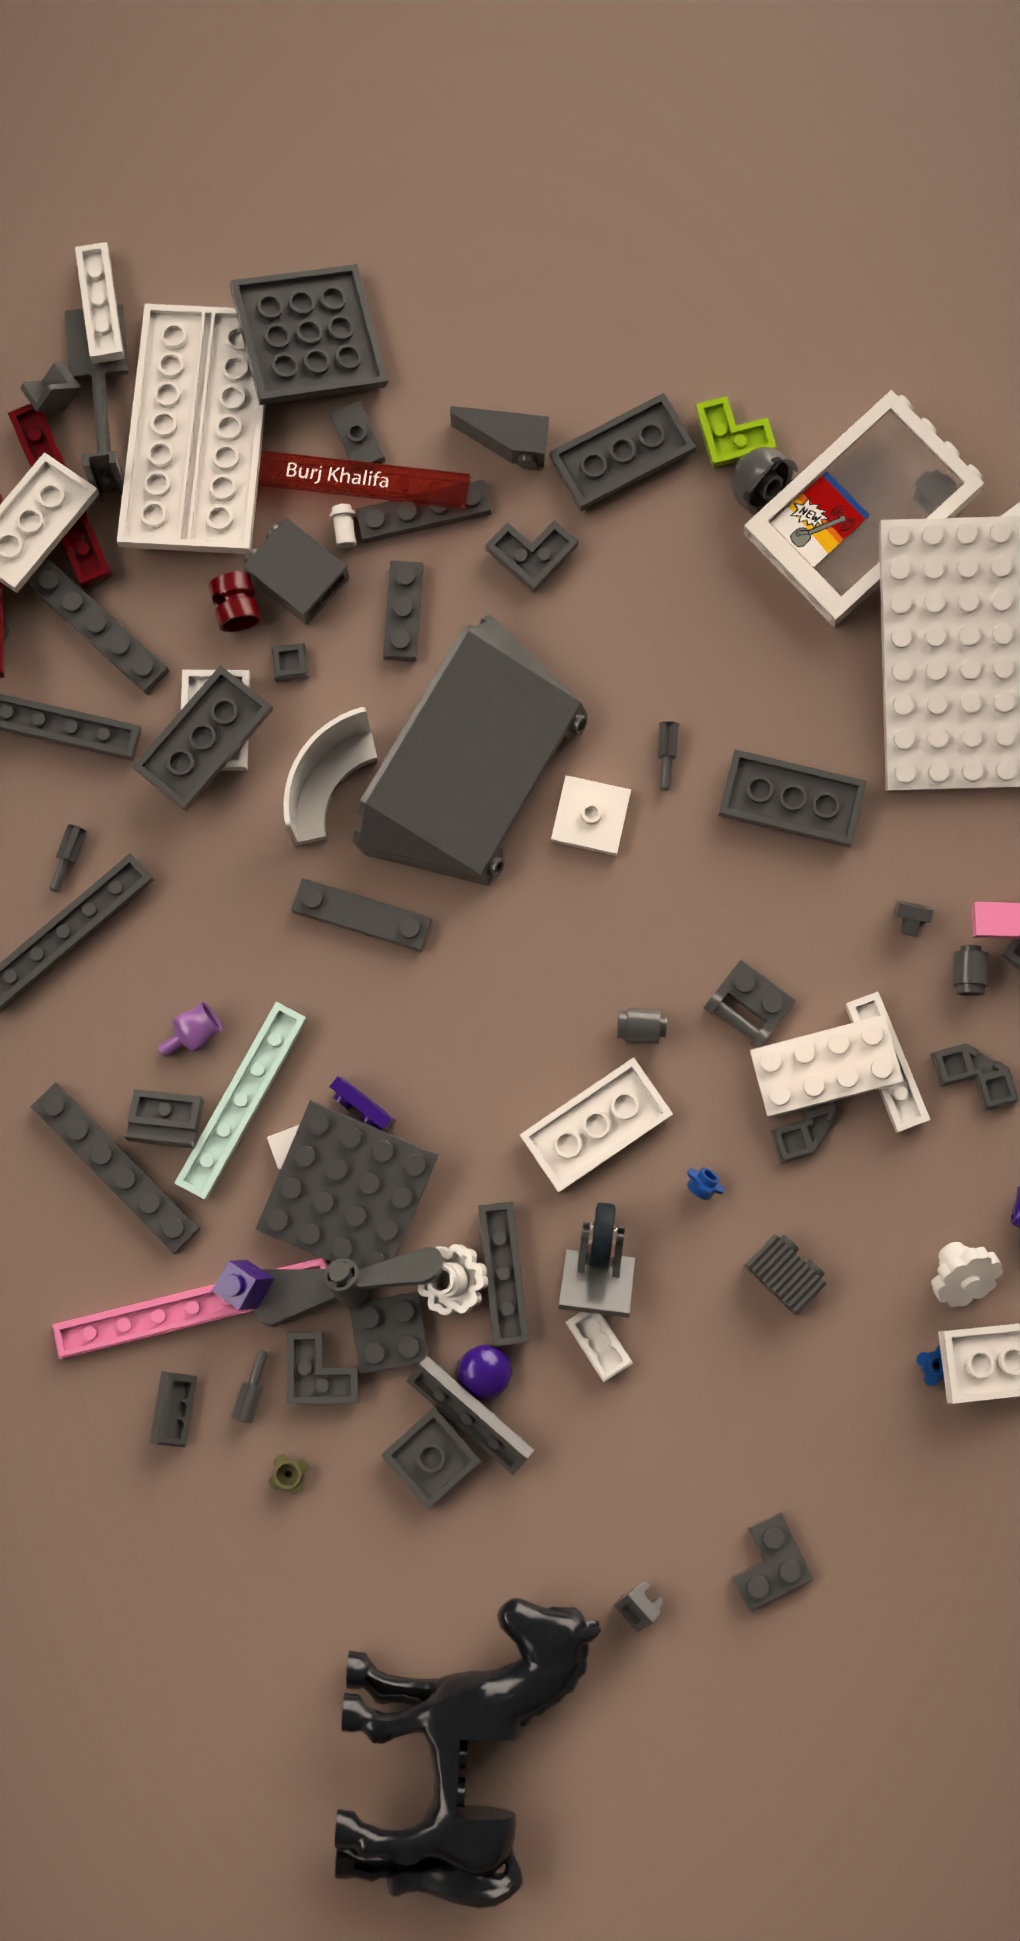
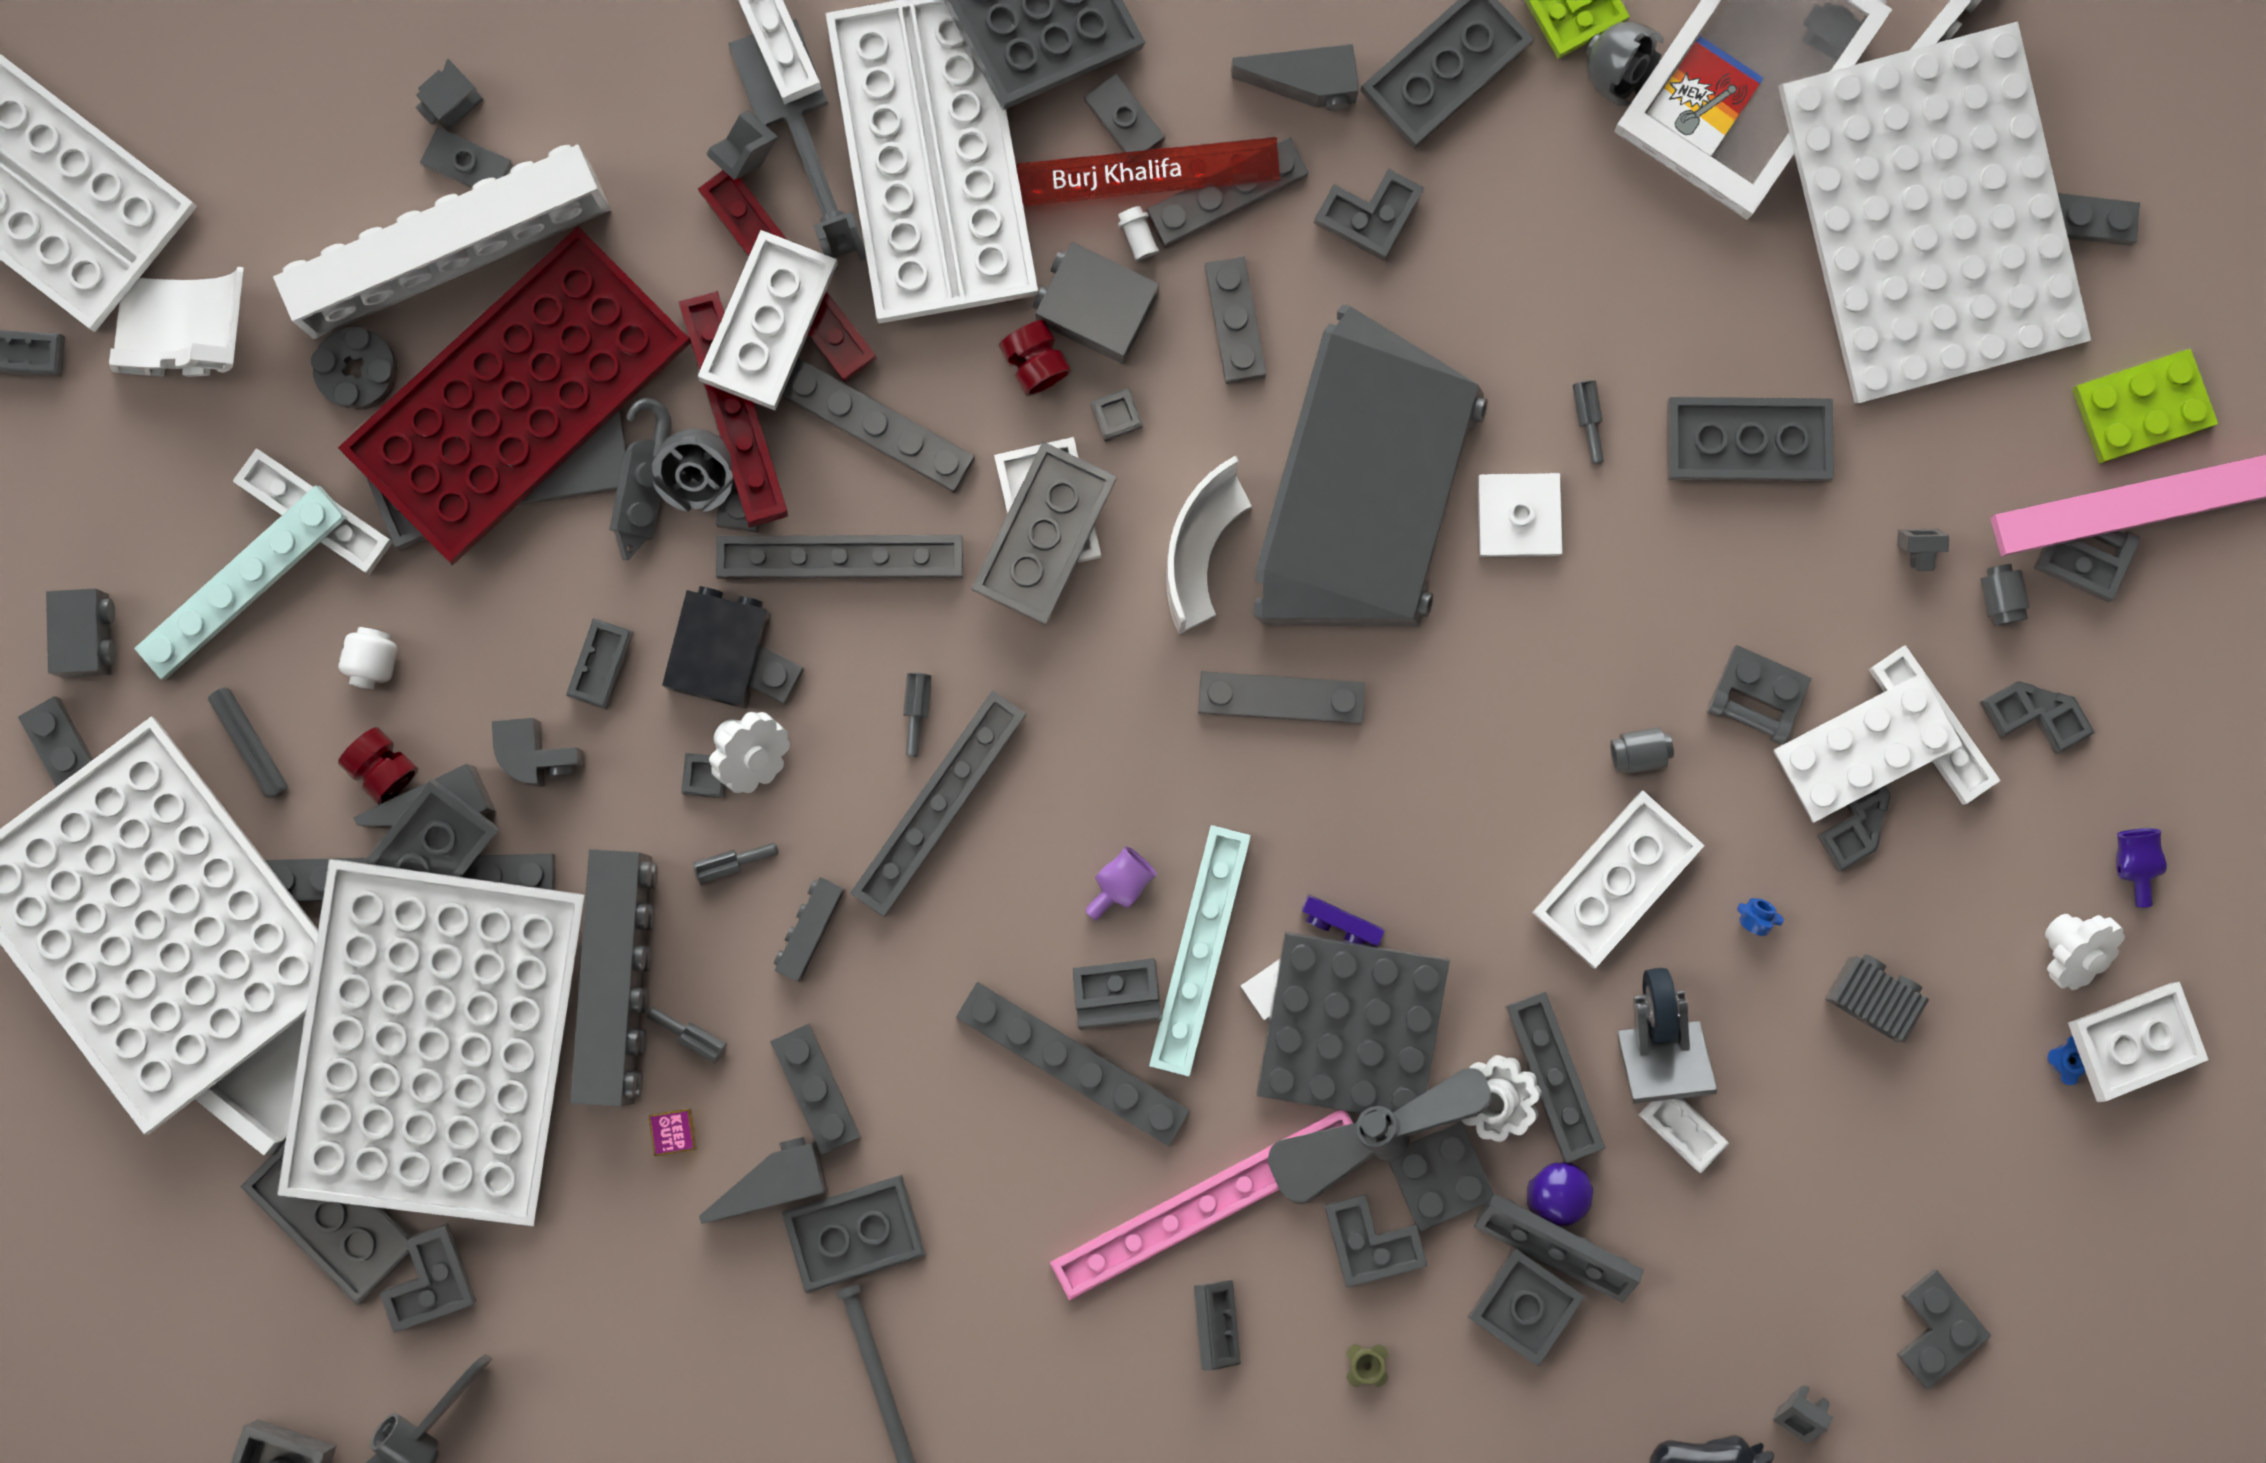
camera: 20 degrees left, 5 degrees up
(242, 1284) = (1264, 1165): brick -> none
(250, 1392) = (1299, 1283): dark grey axle -> none

